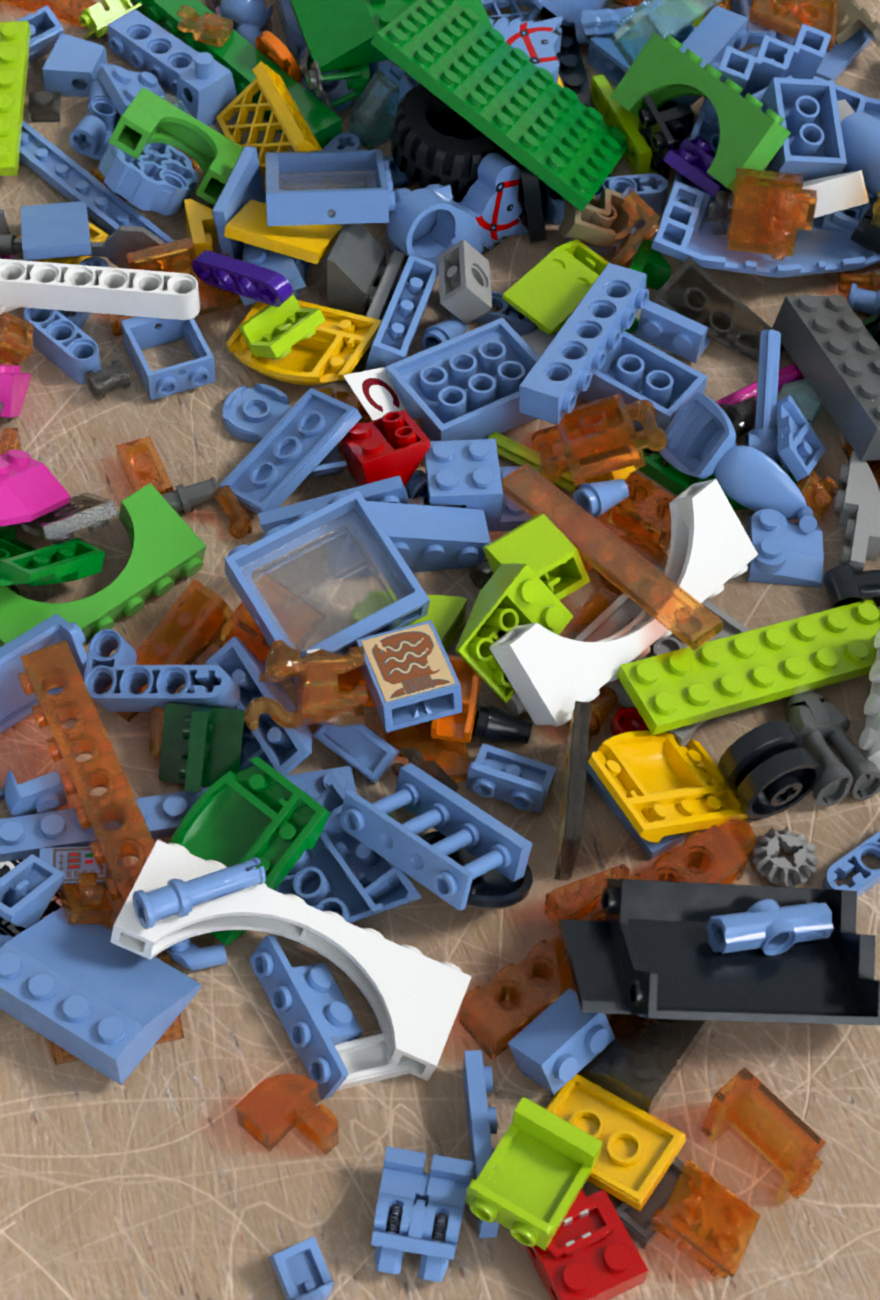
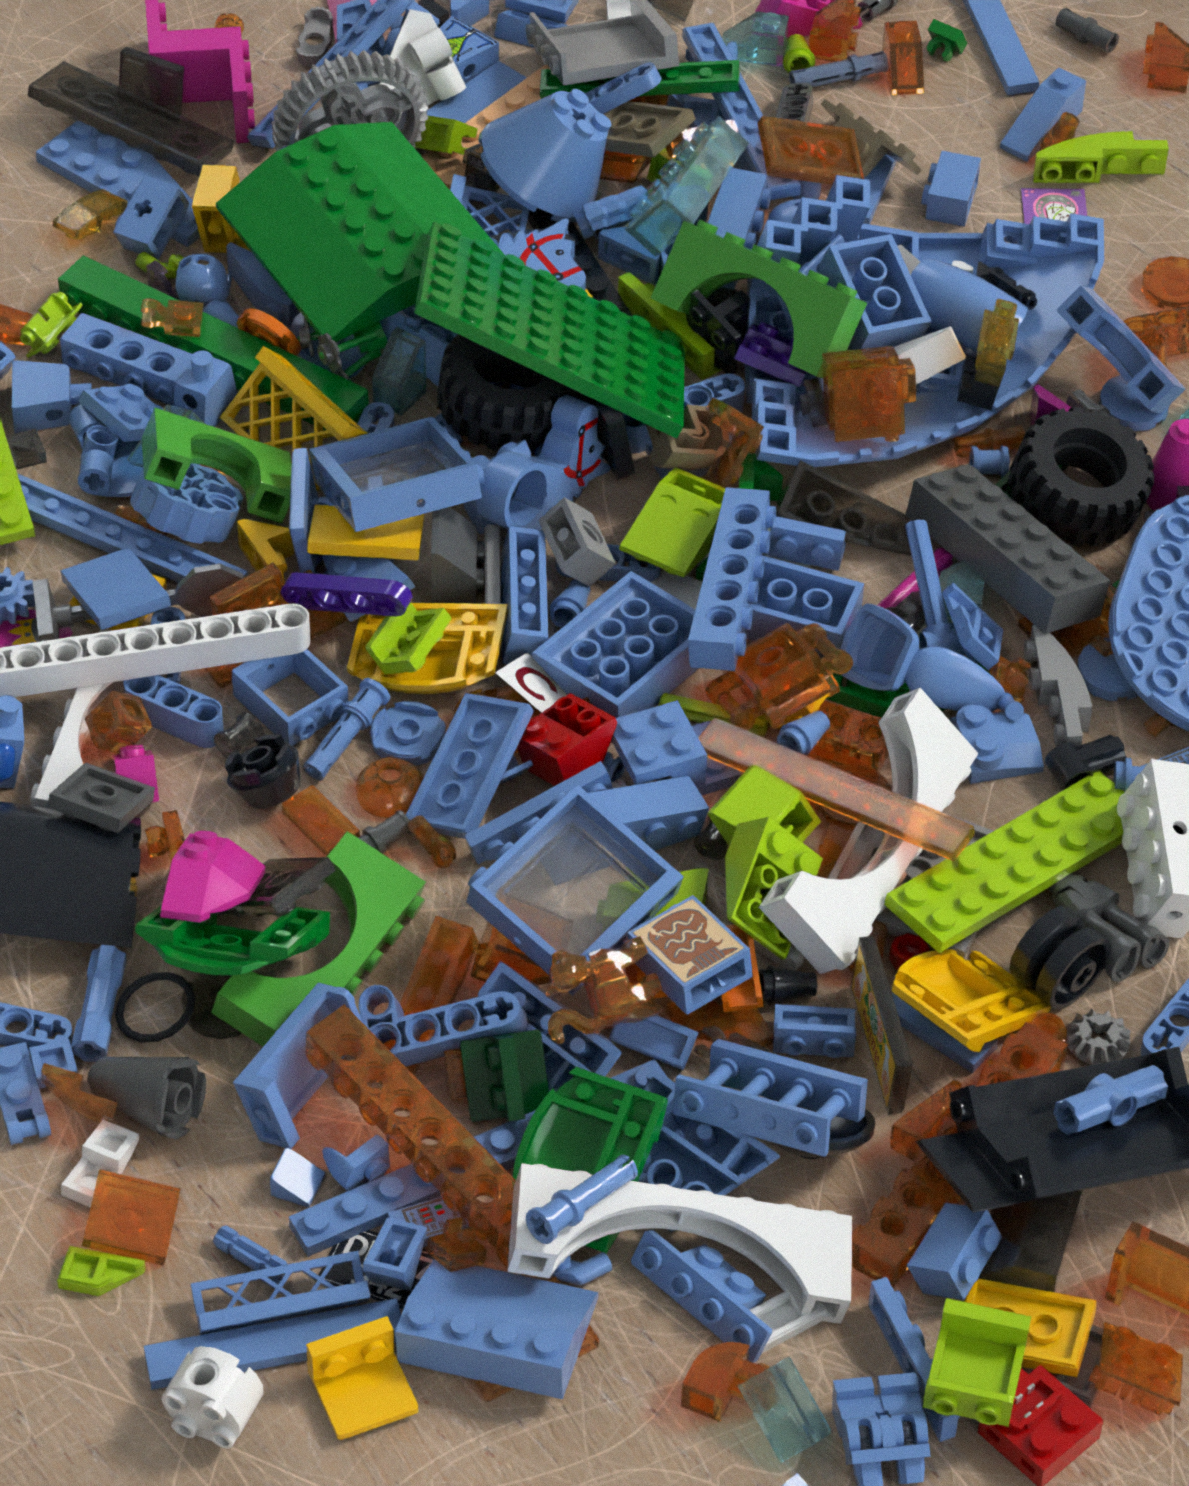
camera: 15 degrees left, 5 degrees down
(111, 415) = (265, 772): none -> black cone
(213, 386) = (355, 716): none -> medium blue pin
(217, 463) = (386, 797): none -> clear orange piece
(331, 1162) = (785, 1409): none -> clear light blue panel

